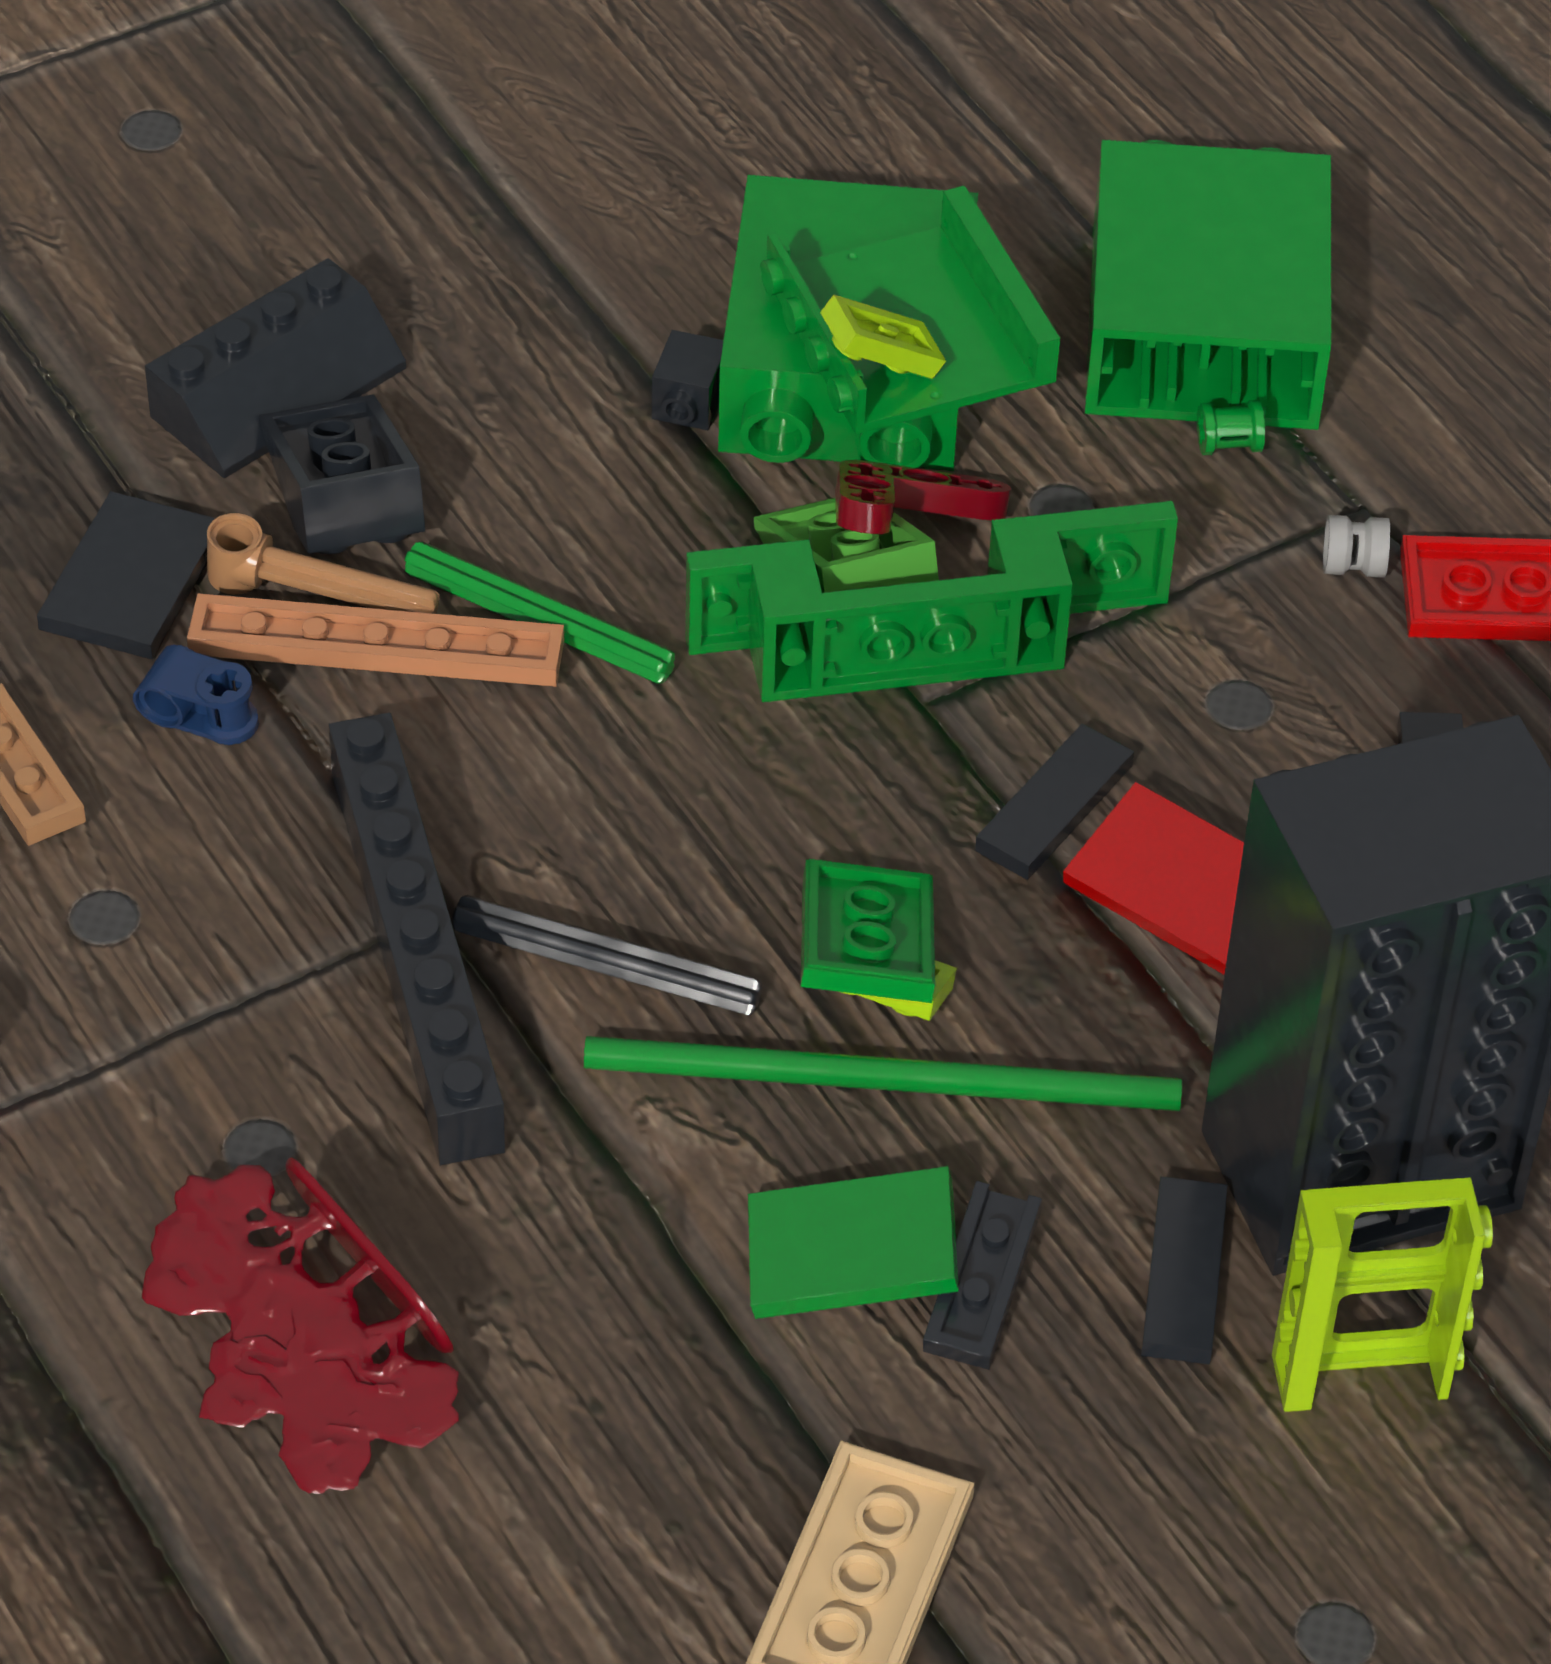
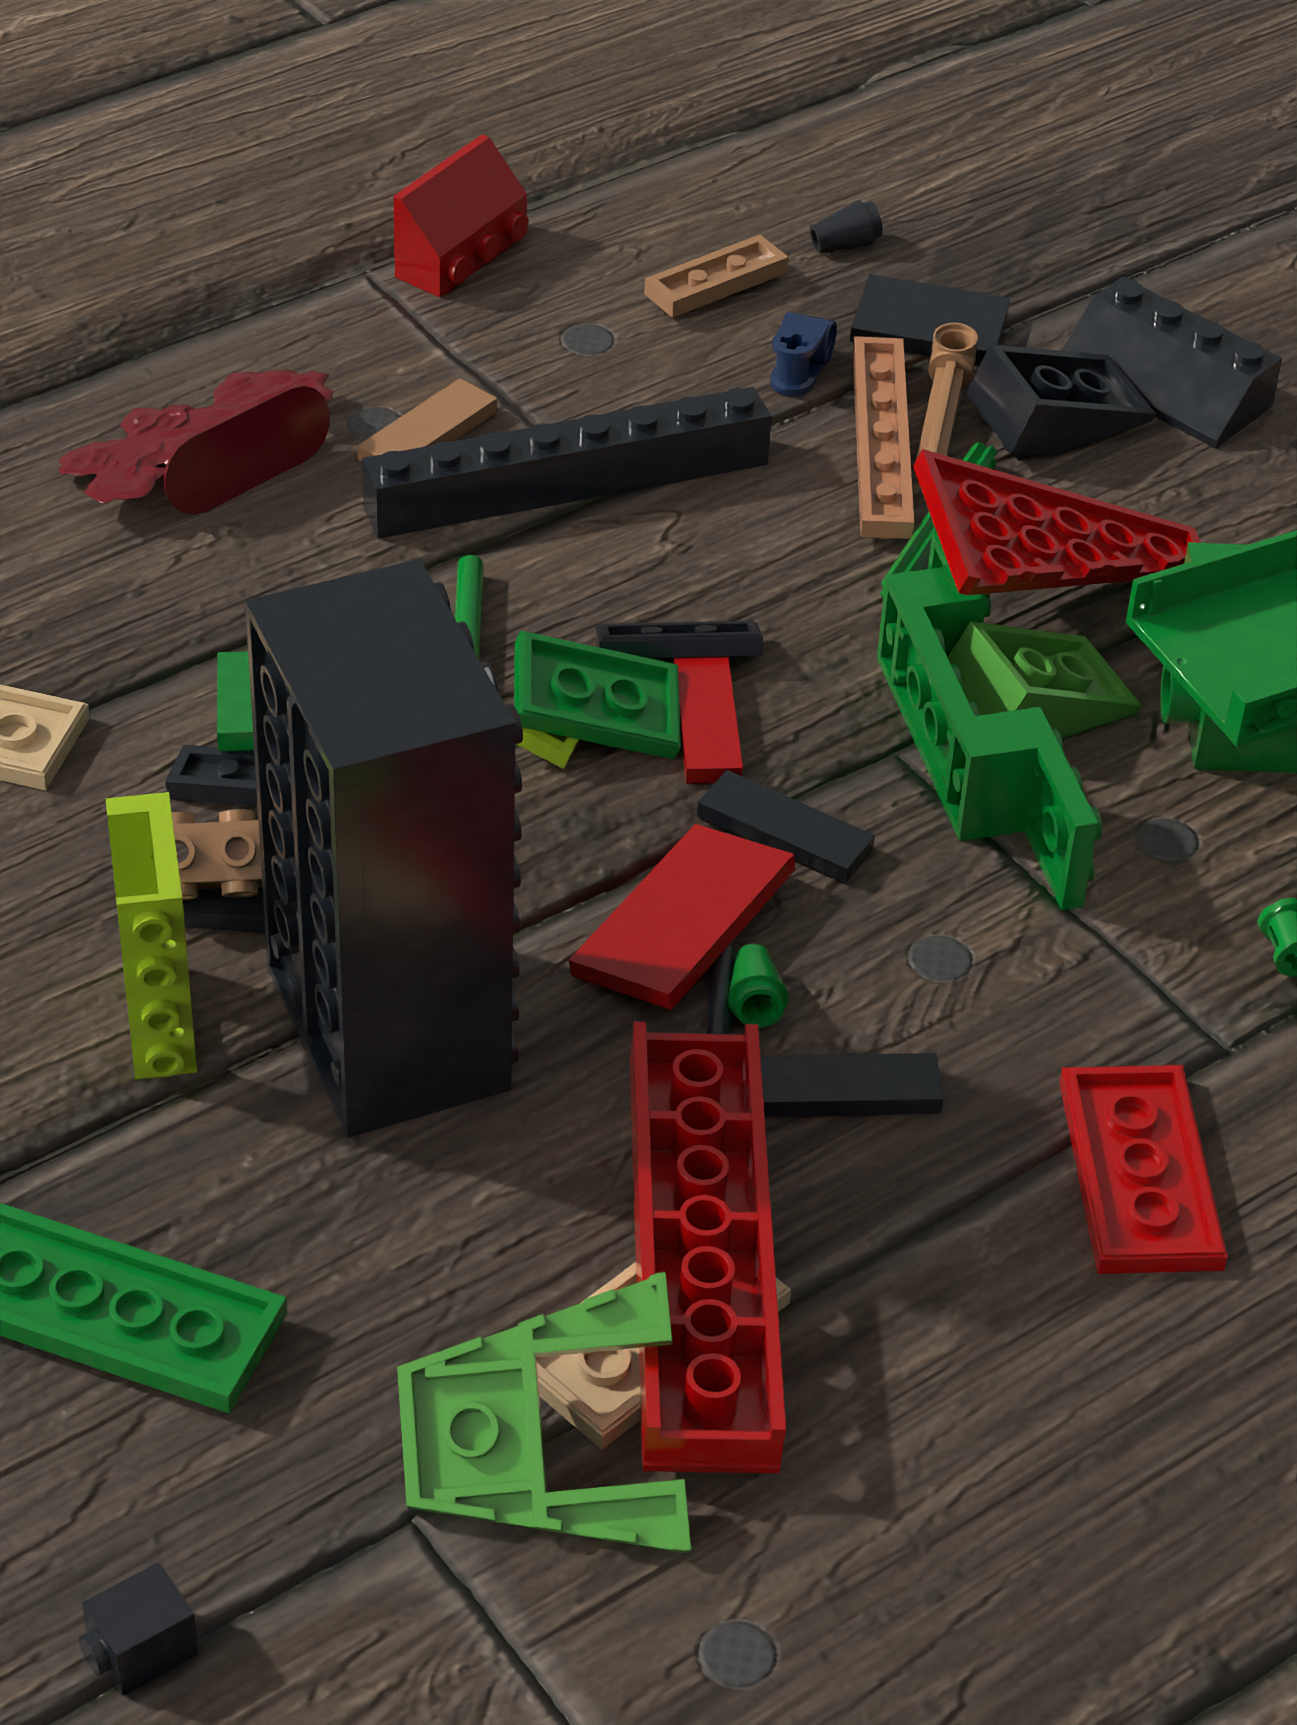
camera: 85 degrees right, 5 degrees down
(298, 1084) = (436, 420): none -> medium nougat tile
(607, 955) = (575, 562): black axle -> none
(680, 492) = (1033, 536): none -> red wing
(748, 862) = (682, 639): none -> black tile
(871, 490) = (1121, 682): dark red beam -> none
(882, 337) = (1209, 594): lime plate -> none
(911, 846) = (707, 719): none -> red tile
(1166, 1286) = (220, 854): none -> medium nougat brick
(1370, 546) = (1150, 1023): light grey wheel -> none

